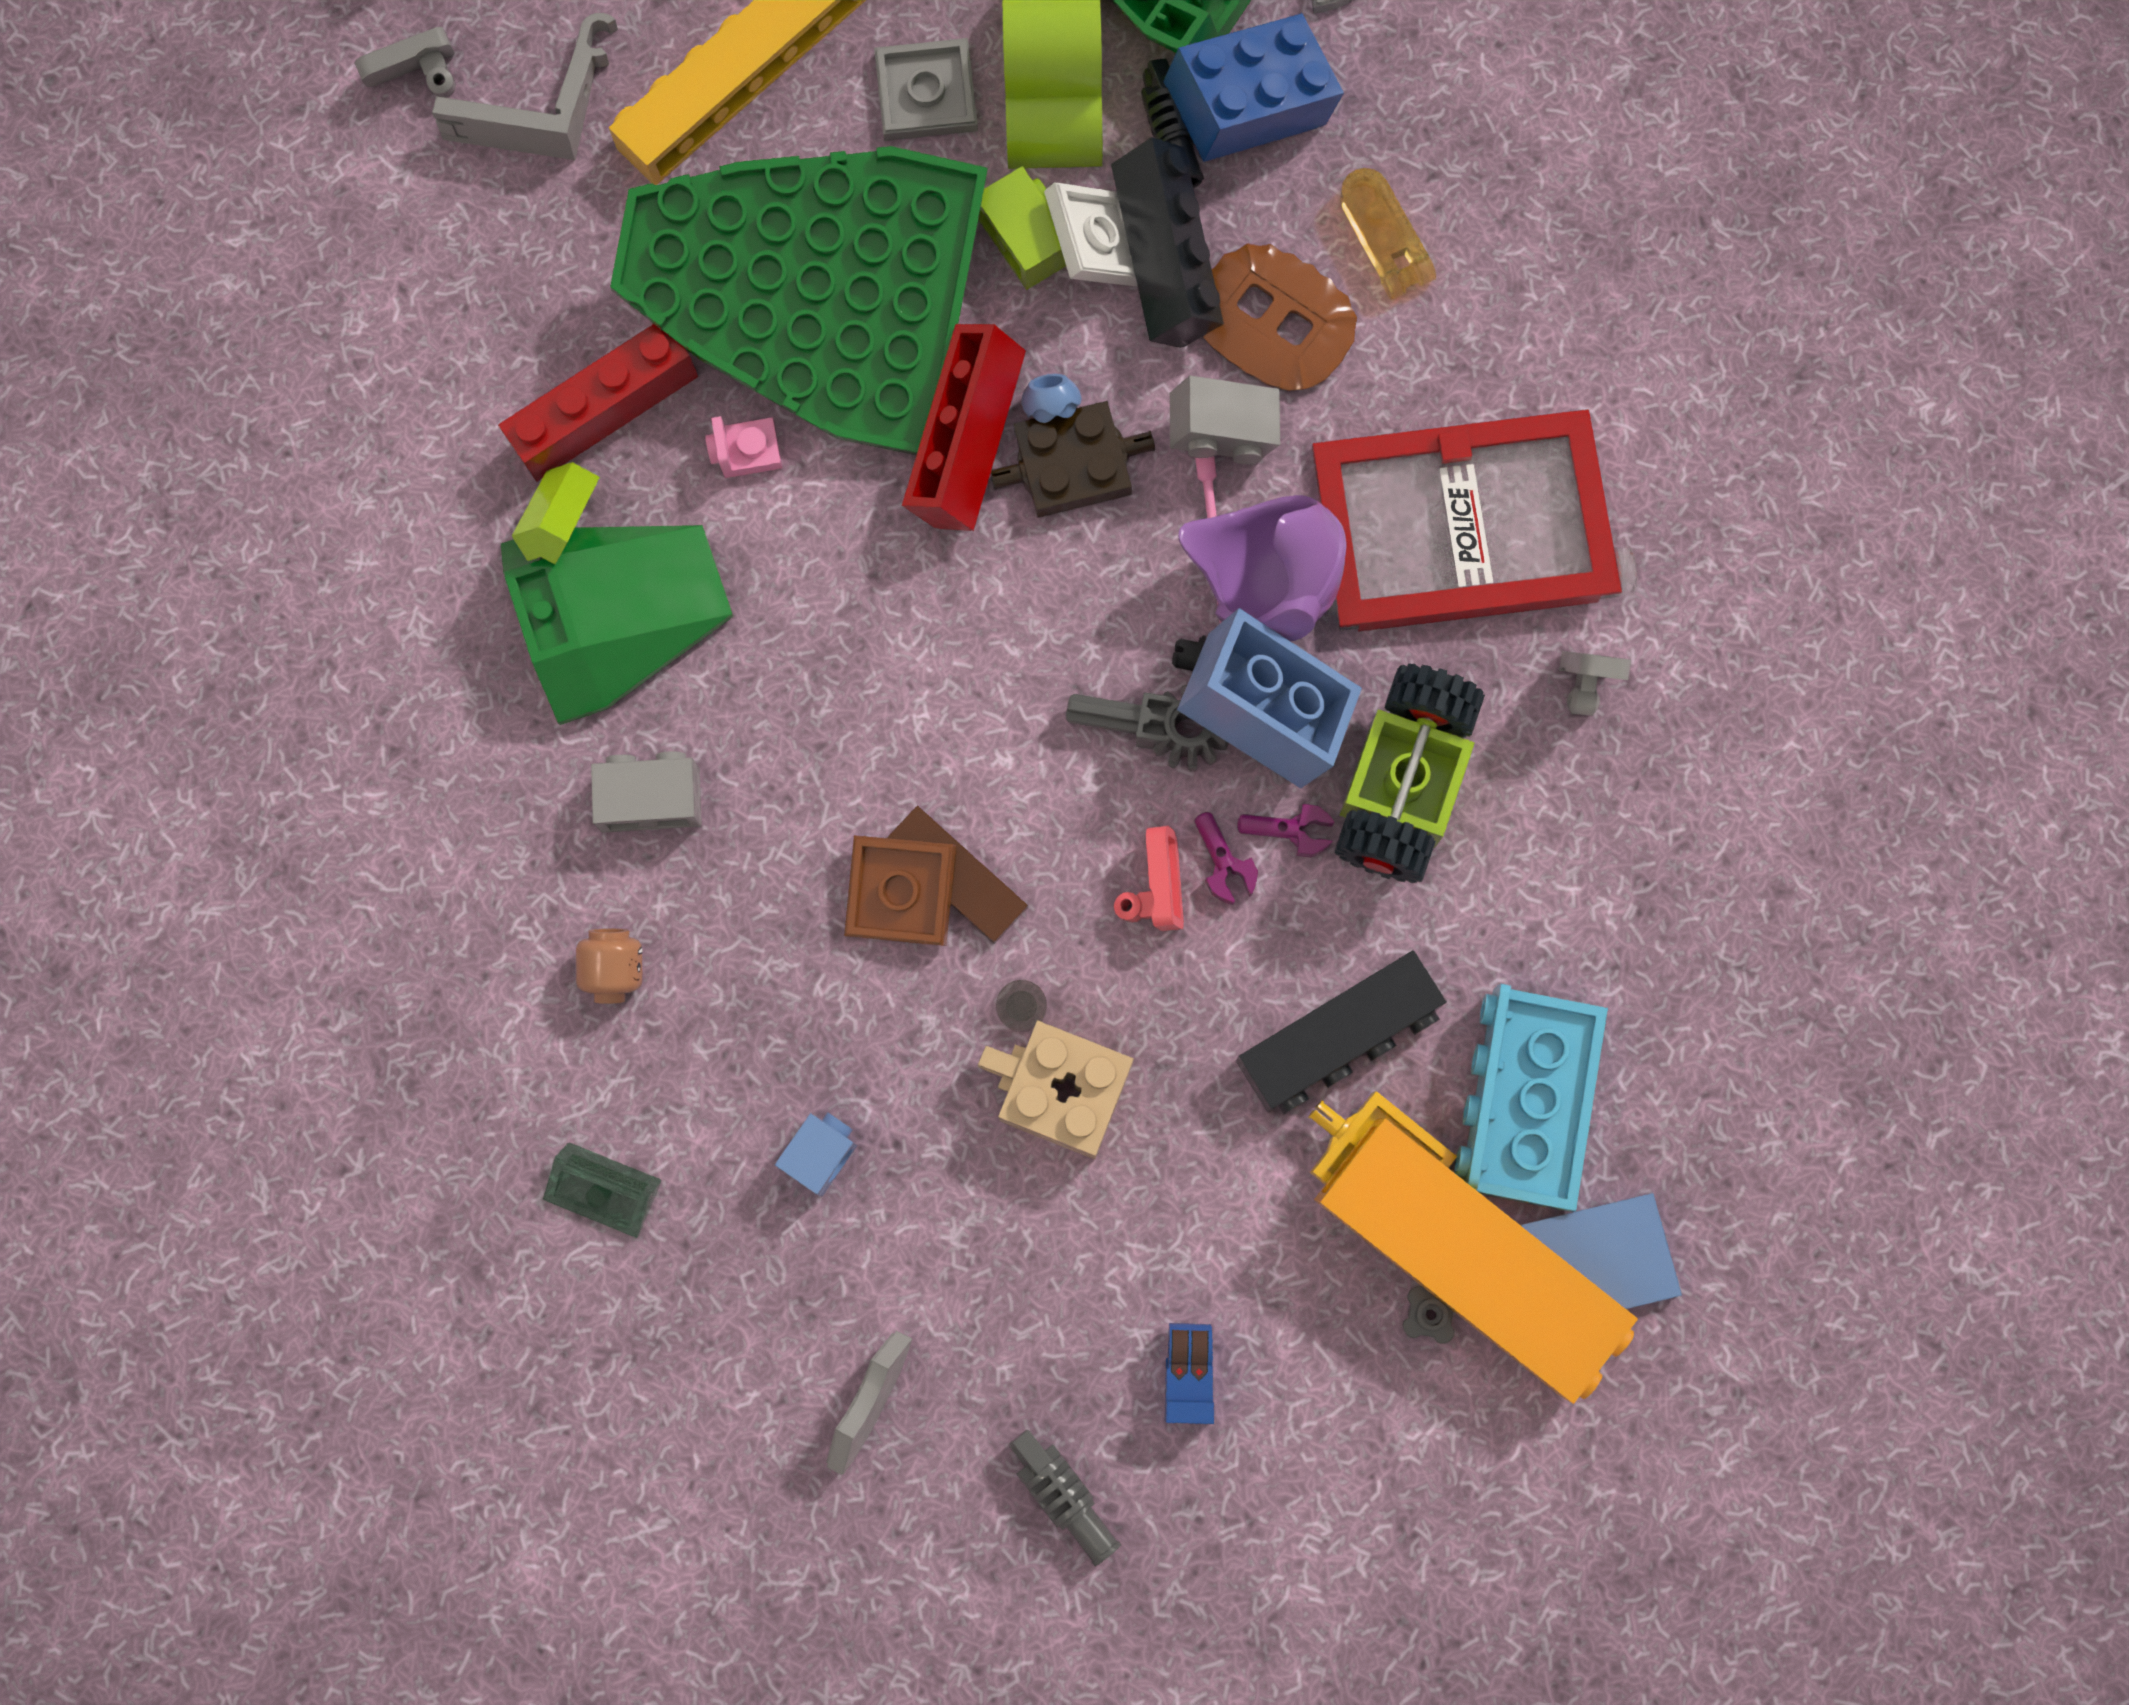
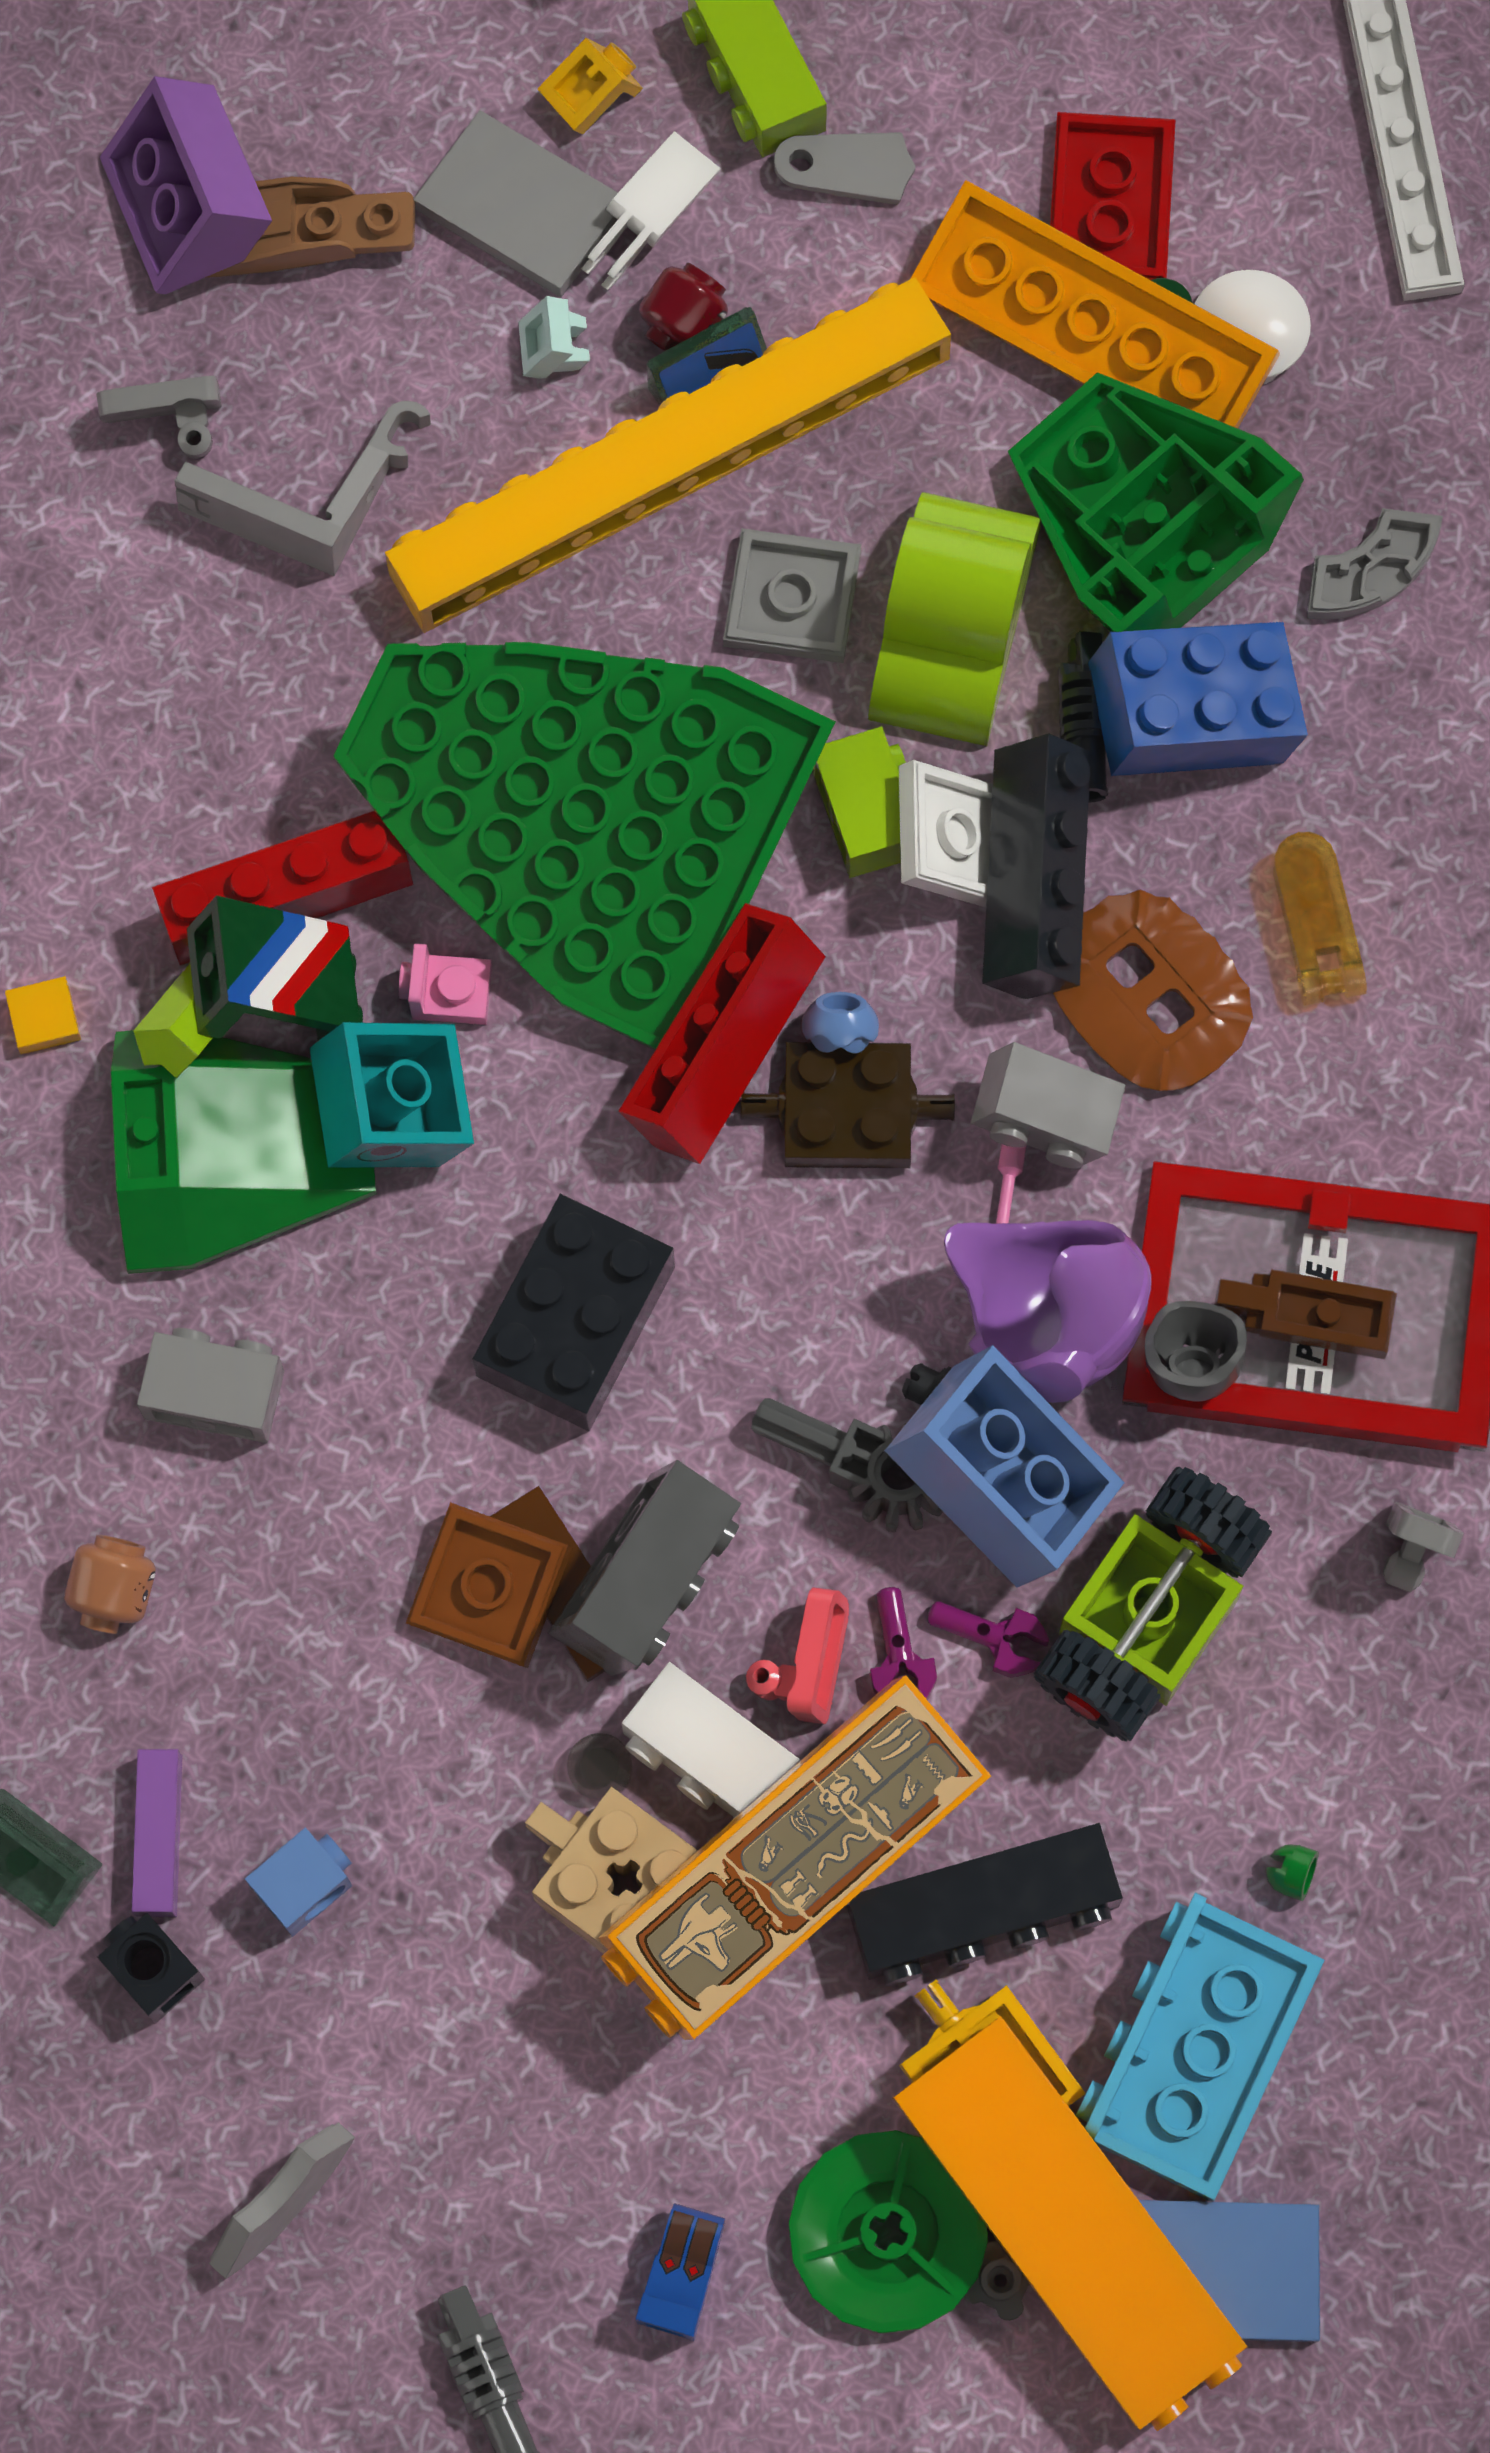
camera: 15 degrees right, 5 degrees down
(441, 545) = (43, 1015): none -> yellow tile
(608, 461) = (270, 968): none -> dark green panel
(697, 1146) = (157, 1832): none -> medium lavender piece
(724, 536) = (391, 1095): none -> teal brick
(741, 1254) = (169, 1986): none -> black brick
(908, 666) = (574, 1312): none -> black brick
(1019, 847) = (647, 1569): none -> dark grey brick
(1136, 983) = (704, 1743): none -> white brick
(1192, 1041) = (792, 1860): none -> brick
(1301, 1325) = (837, 2249): none -> green piece
(1389, 558) = (1195, 1370): none -> dark grey helmet
(1464, 524) = (1313, 1311): none -> reddish brown hinge
(1567, 946) = (1296, 1871): none -> green hinge

